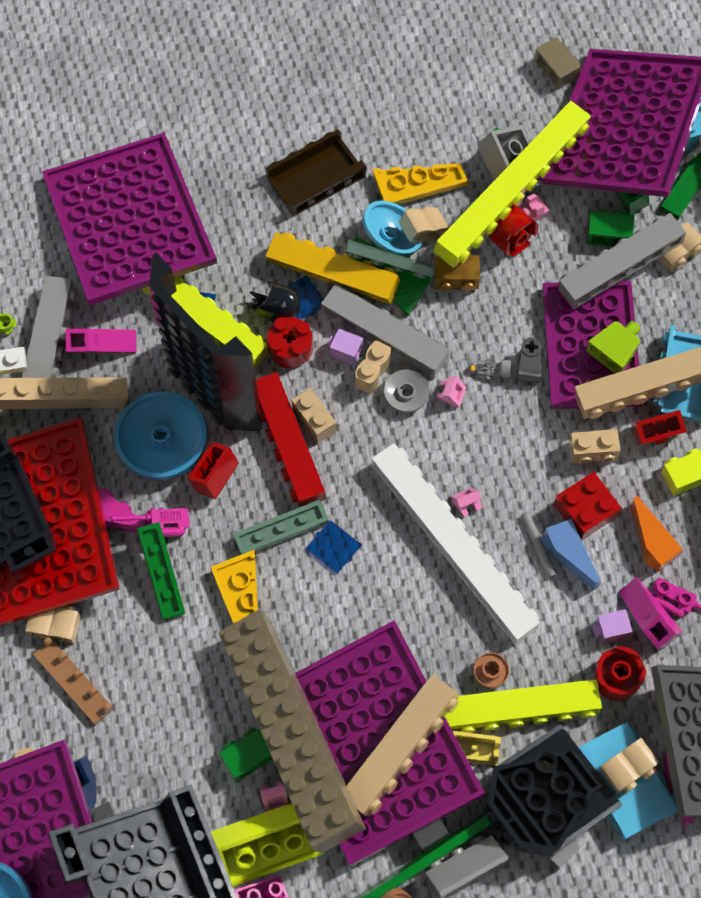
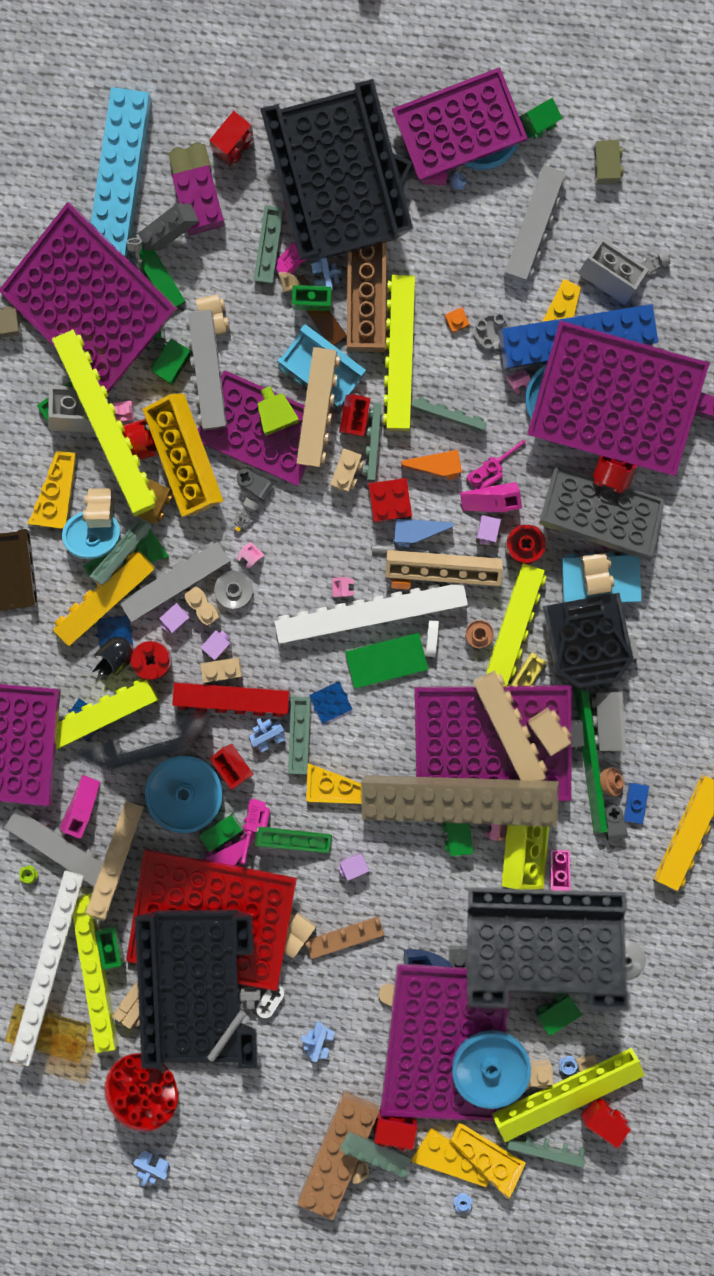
camera: 65 degrees left, 20 degrees up
(135, 492) = (221, 832): none -> green brick
(159, 652) = (353, 866): none -> lavender brick
(257, 488) = (265, 731): none -> light blue hips
(339, 399) = (216, 644): none -> lavender brick
(410, 585) = (386, 660): none -> green tile
(420, 792) = (550, 731): none -> tan brick
(459, 621) = (432, 638): none -> white beam
(507, 557) = (399, 583): none -> orange plate
(521, 277) = (182, 454): none -> yellow brick
(545, 596) = (444, 568): none -> tan brick
(646, 459) = (373, 435): none -> sand green plate

